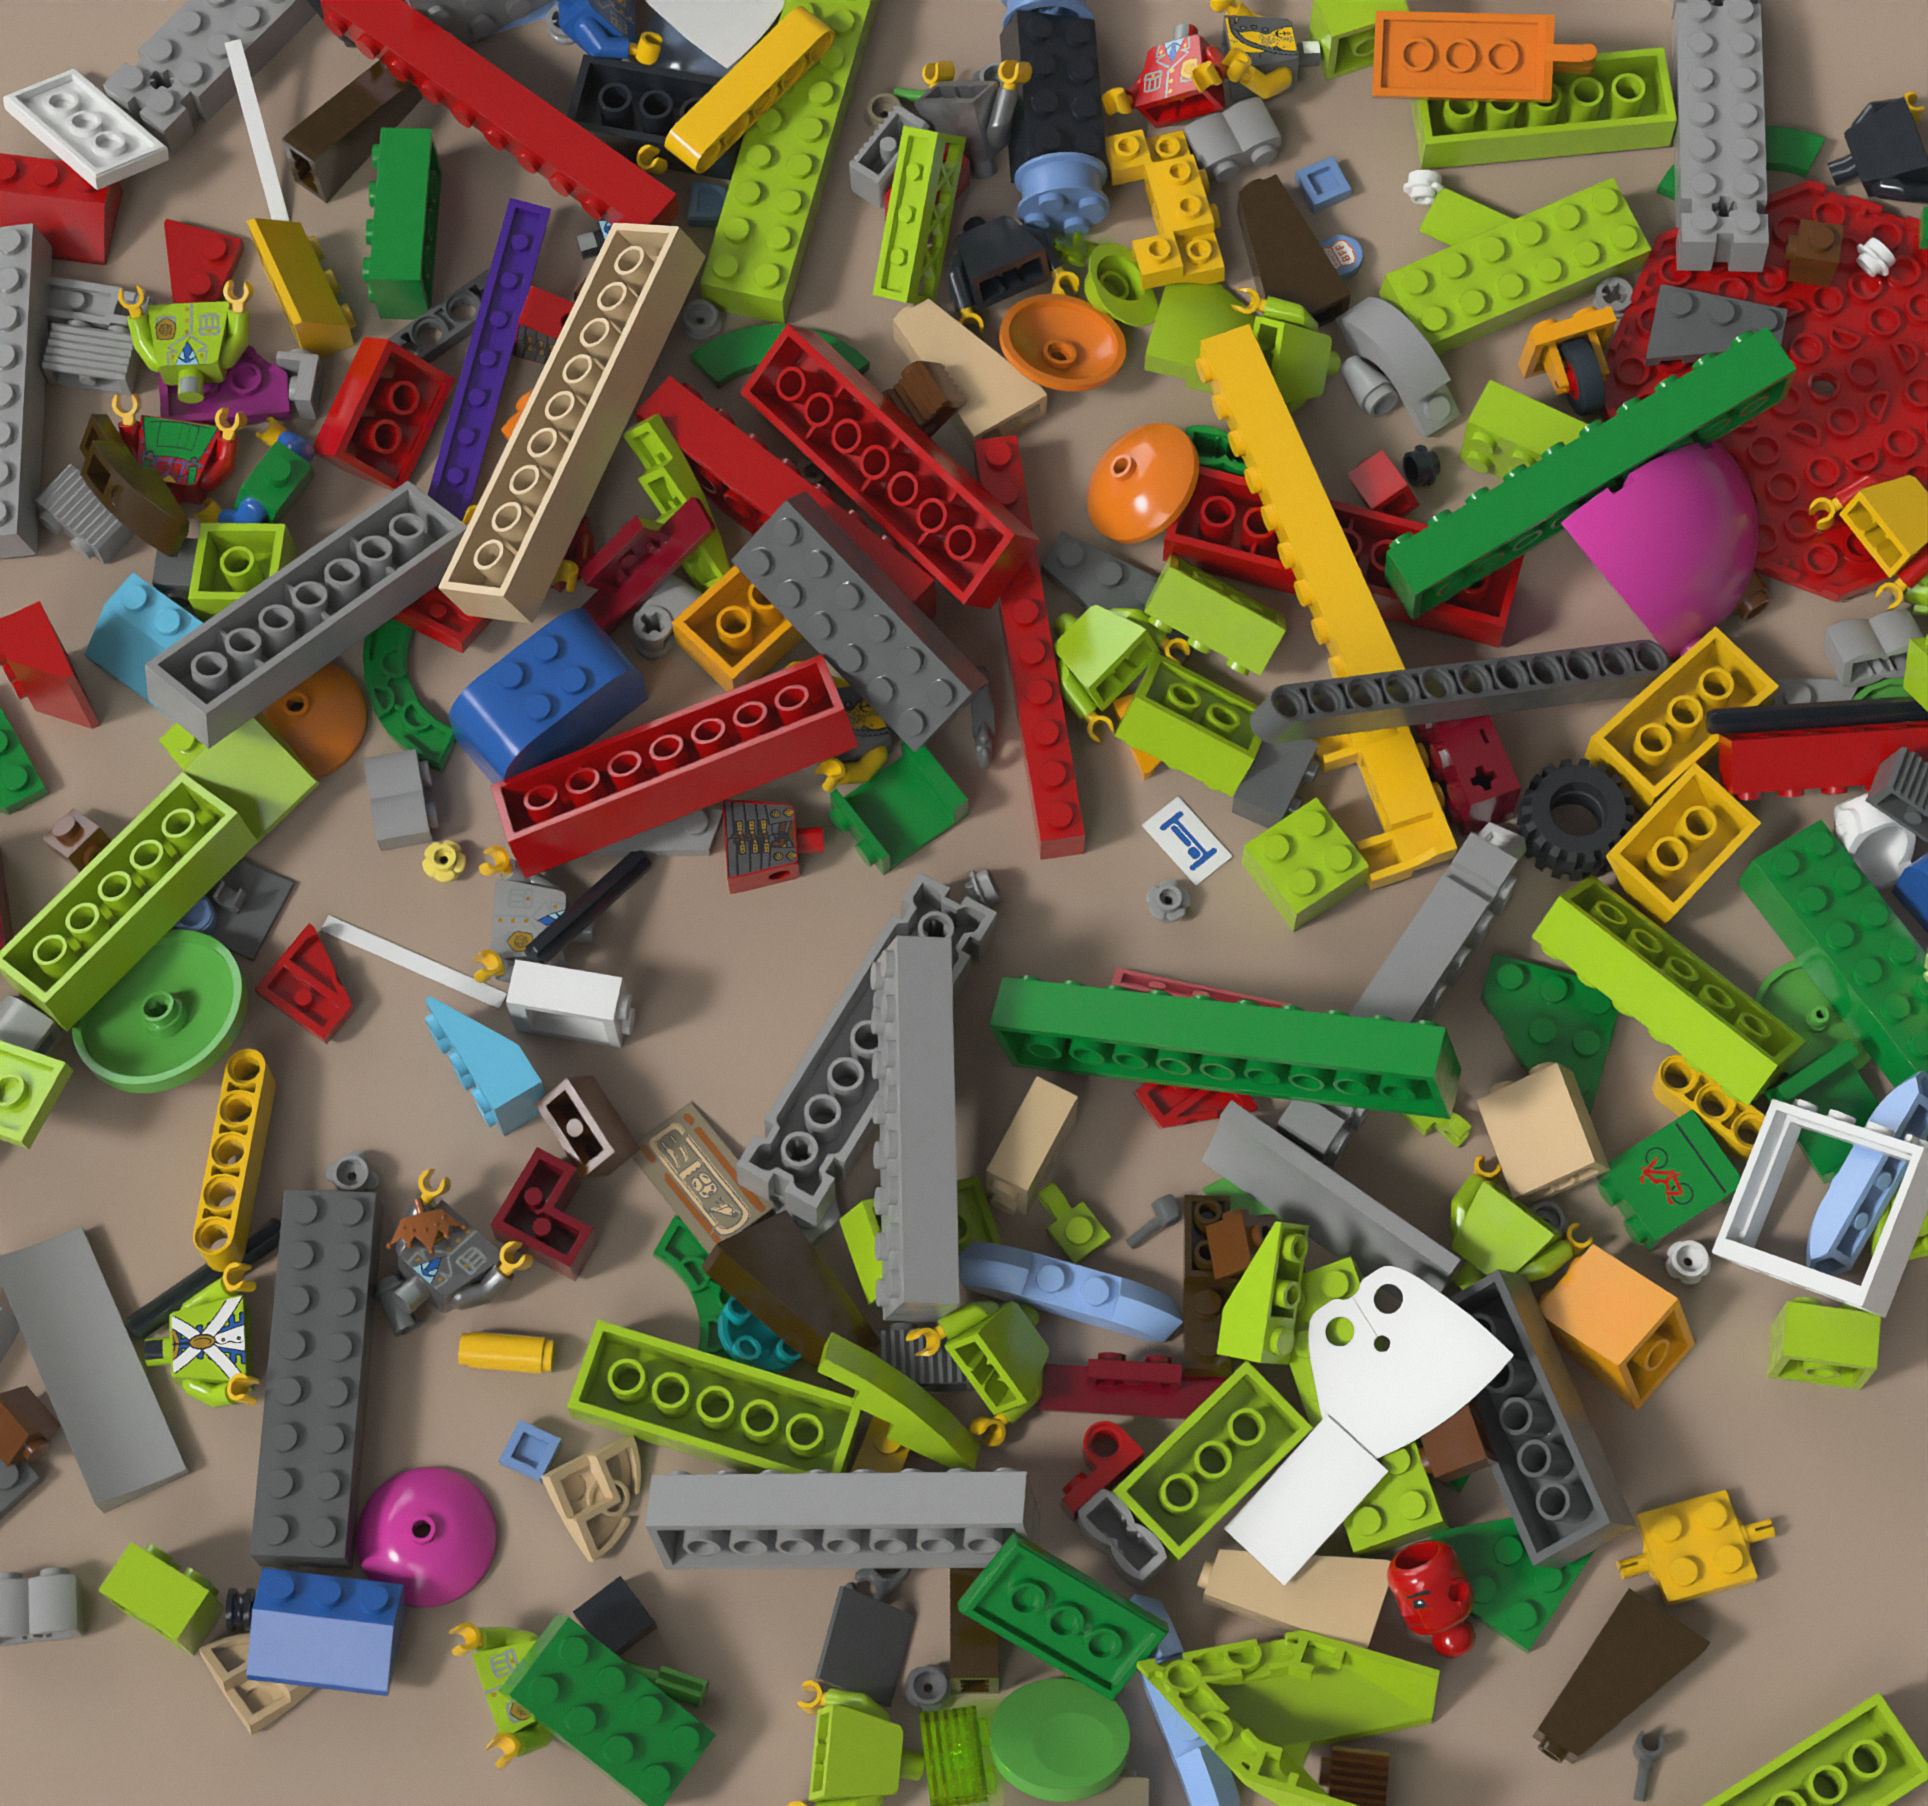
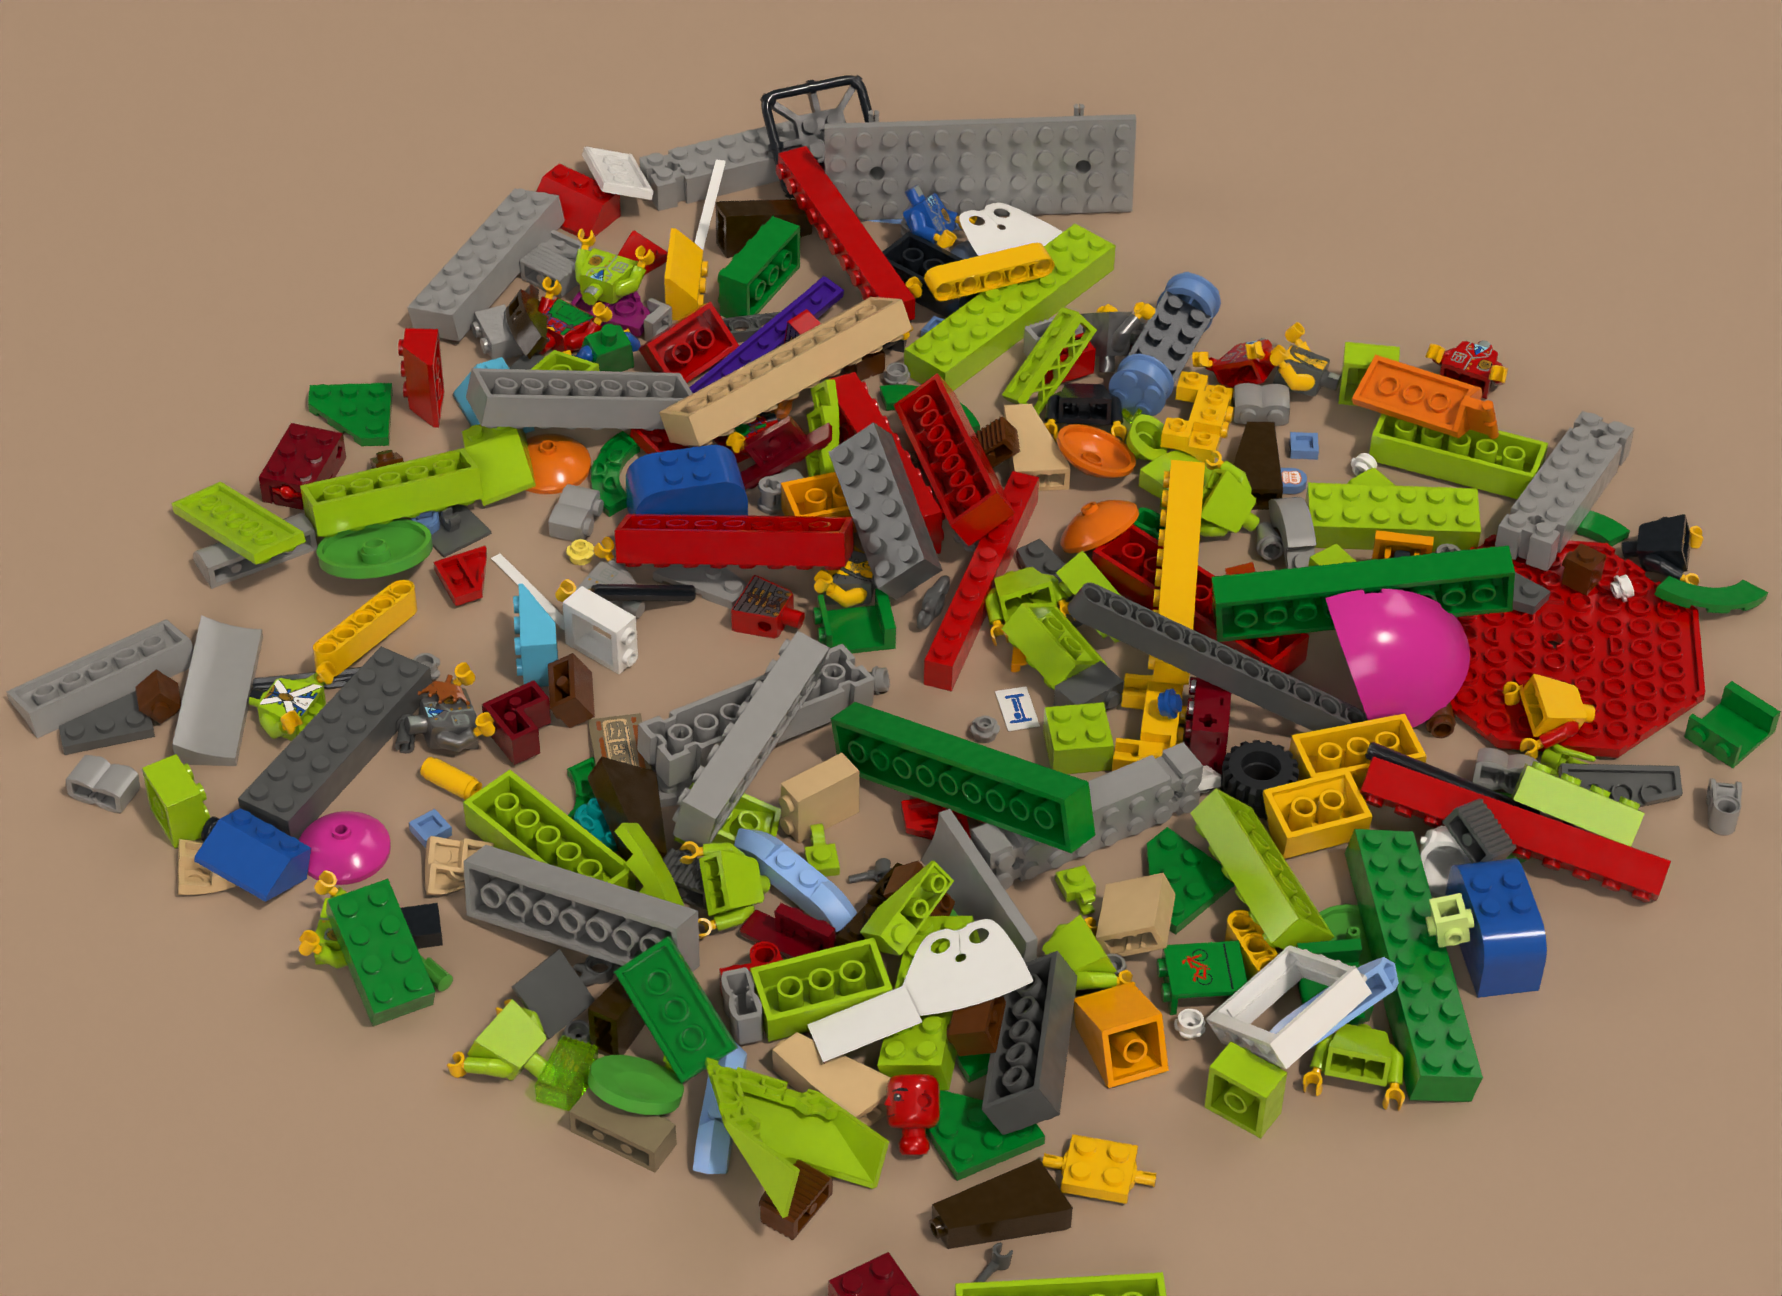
camera: 25 degrees right, 25 degrees down
(1412, 766) = (1169, 703): none -> blue plate

